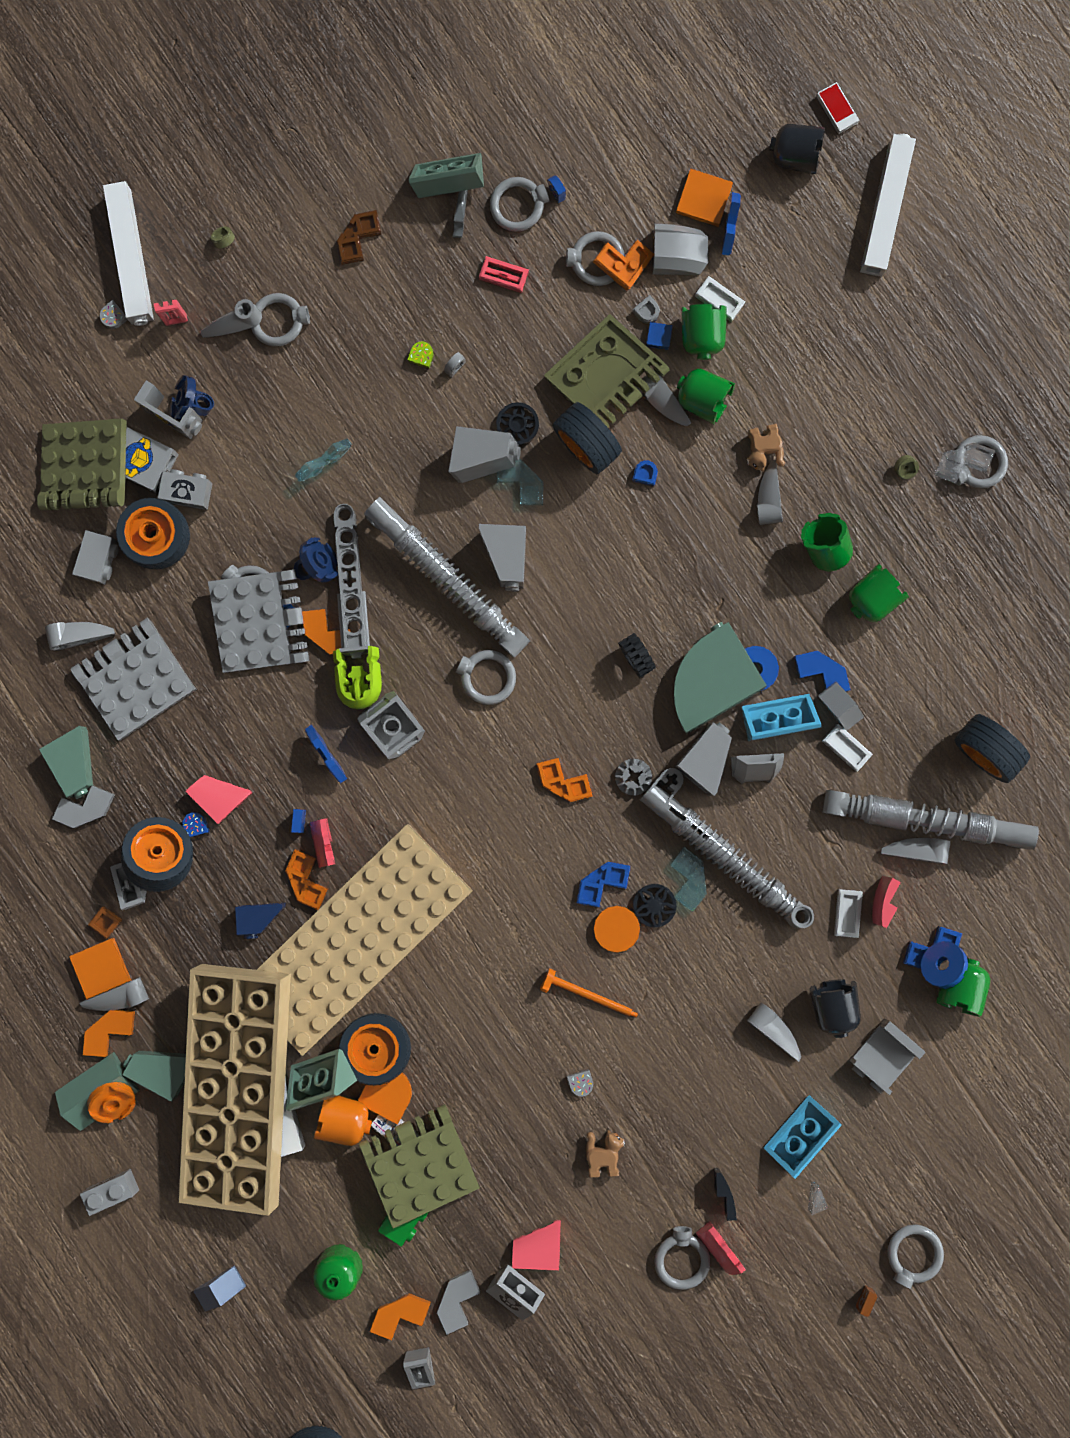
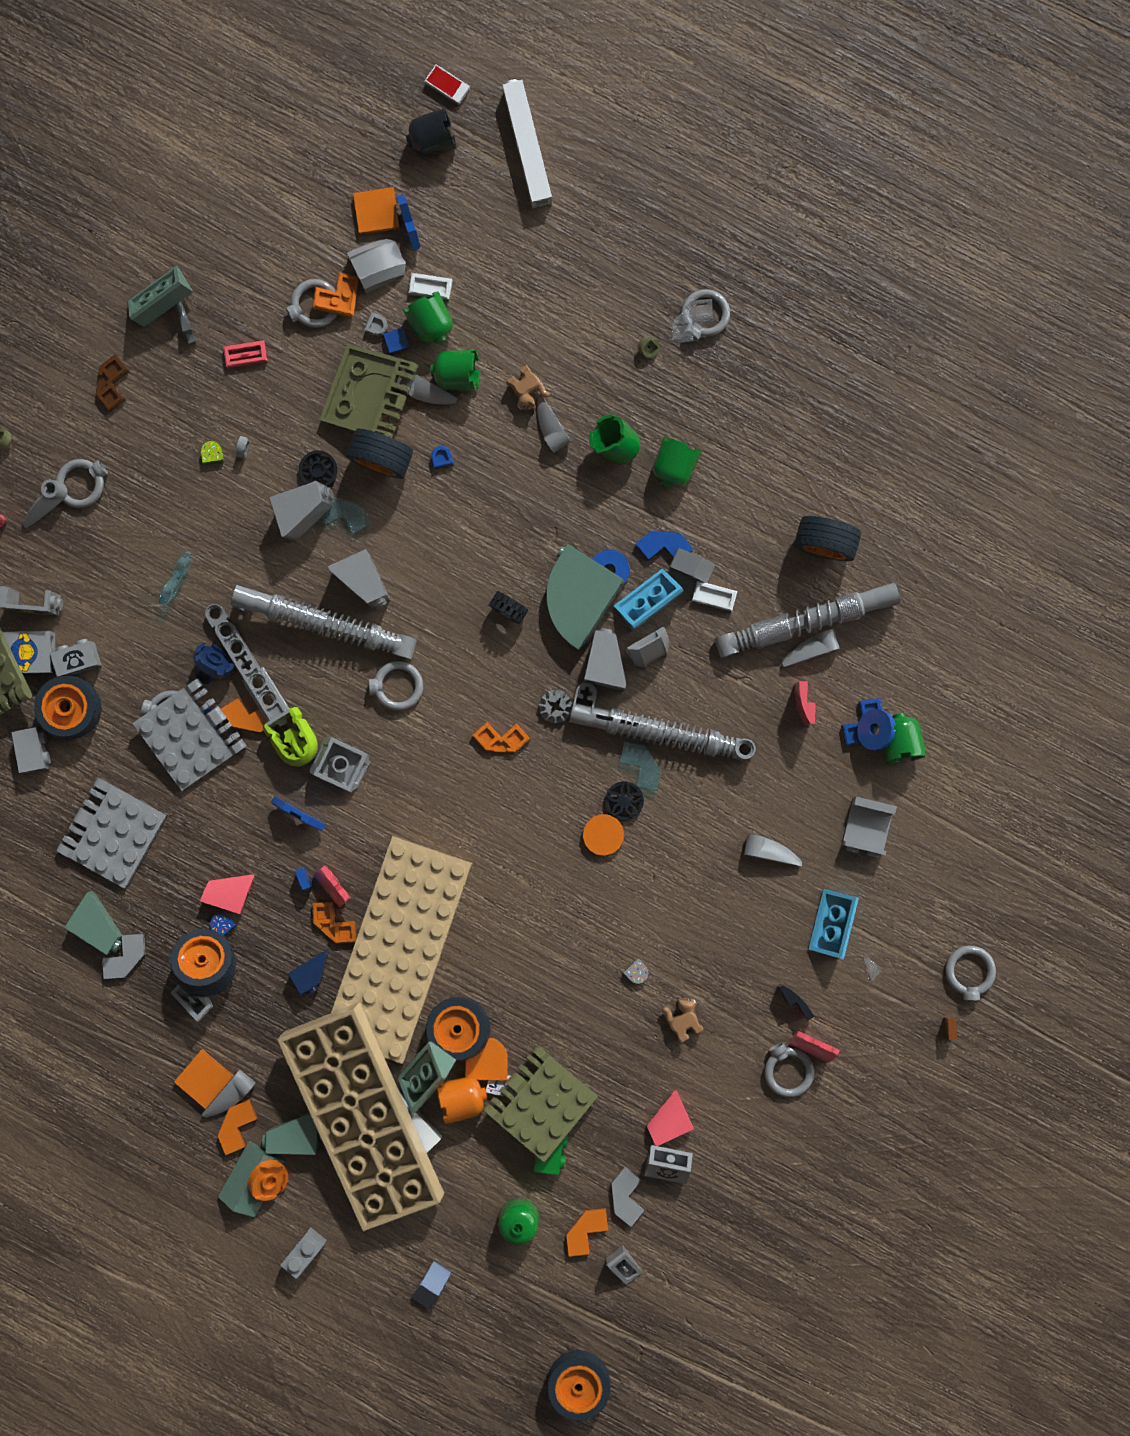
camera: 30 degrees left, 0 degrees up
(72, 634) = (41, 823): light grey piece -> none
(105, 922) = (188, 1040): dark orange tile -> none
(187, 397) = (40, 583): dark blue tile -> none
(539, 196) = (242, 276): light grey piece -> none
(550, 978) = (603, 899): orange piece -> none
(557, 188) = (253, 263): blue tile -> none
(607, 874) = (566, 809): blue tile -> none
(836, 1007) = (809, 807): black cylinder -> none
(848, 913) = (781, 728): white tile -> none

